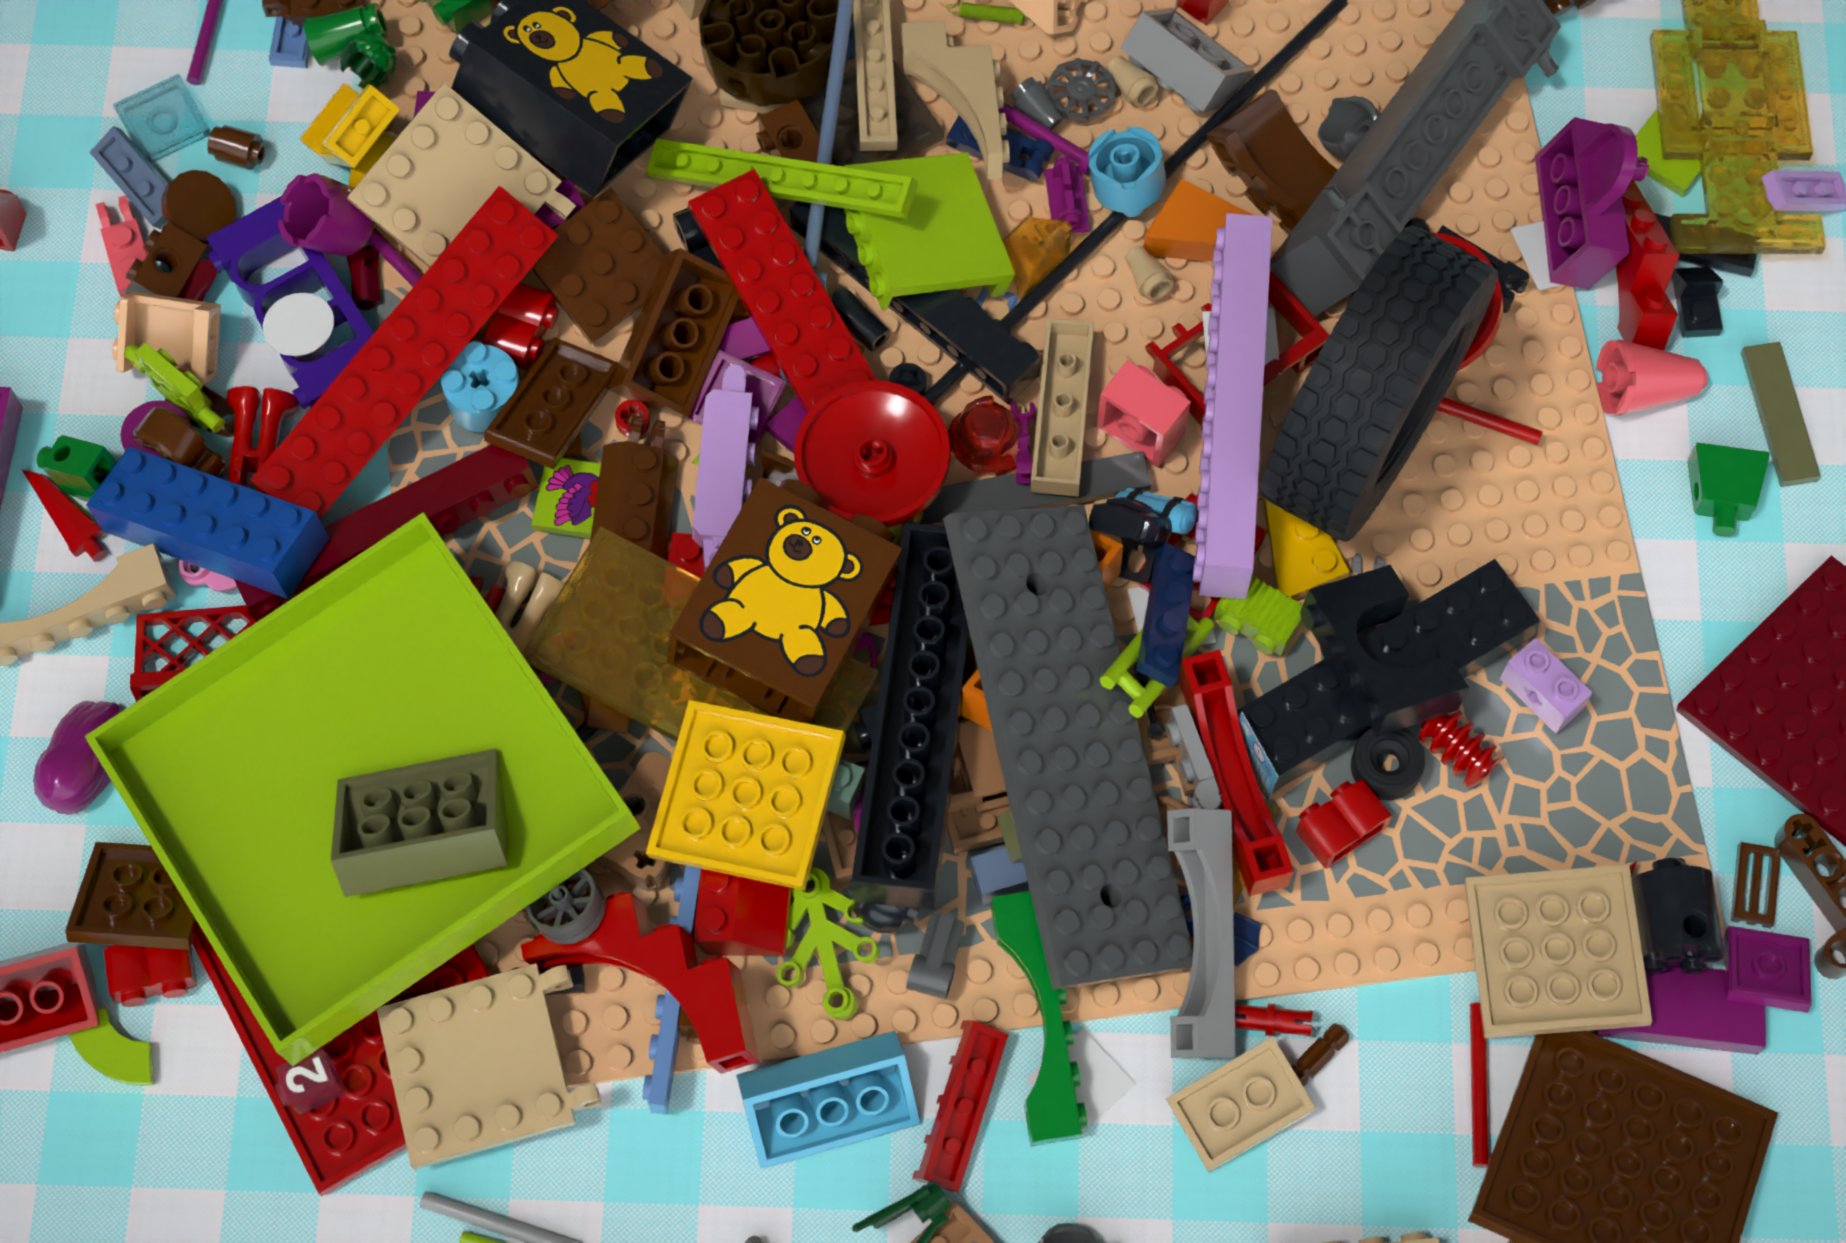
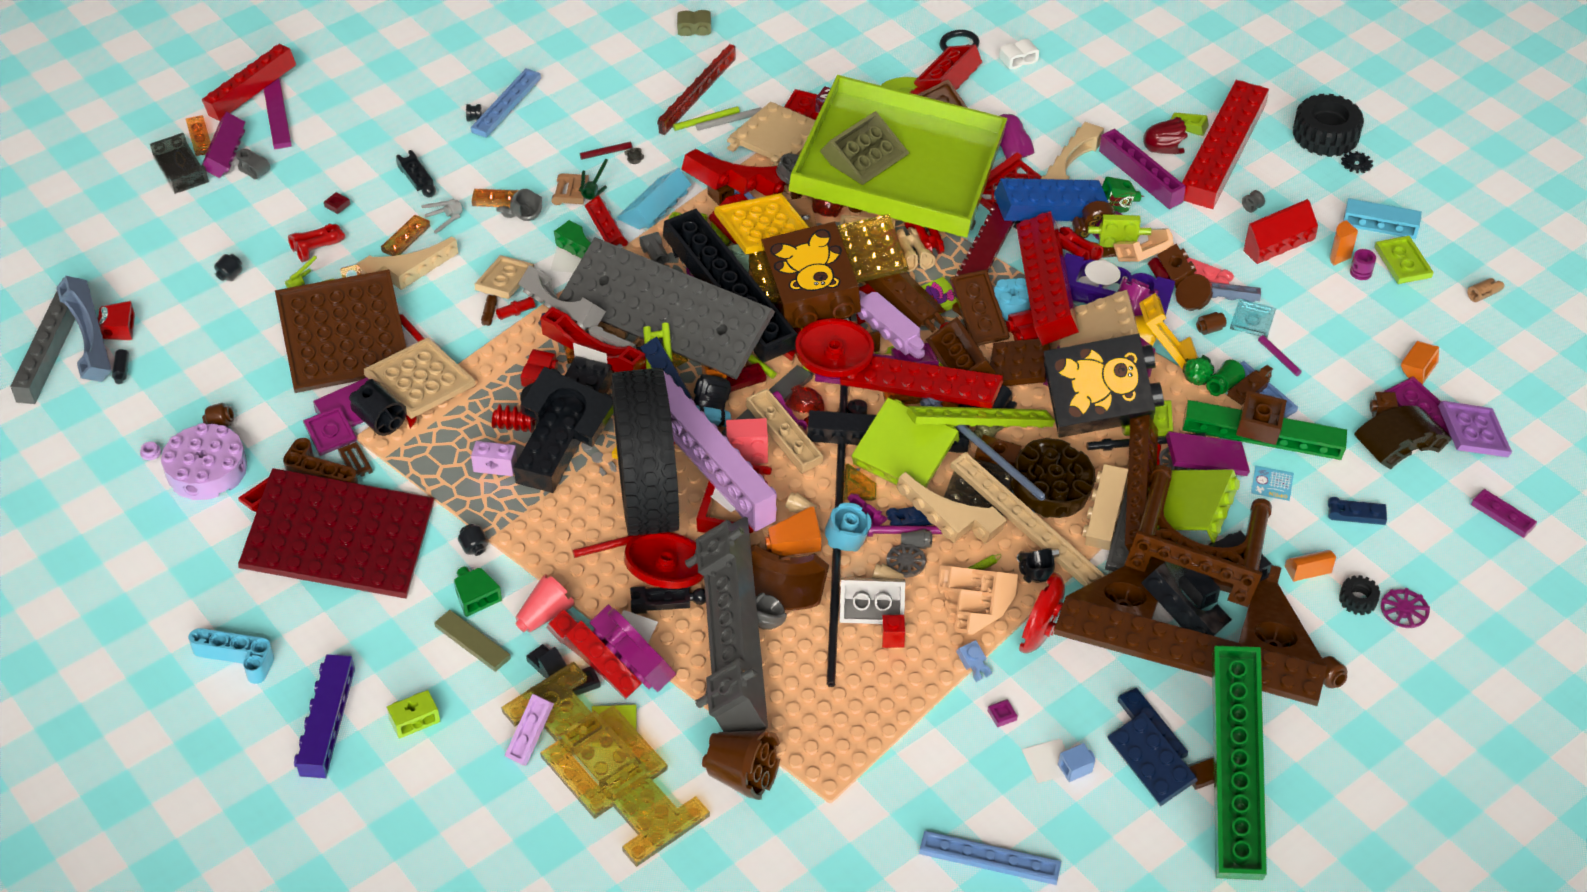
camera: 140 degrees right, 20 degrees down
(1672, 574) = (473, 539): none -> black head

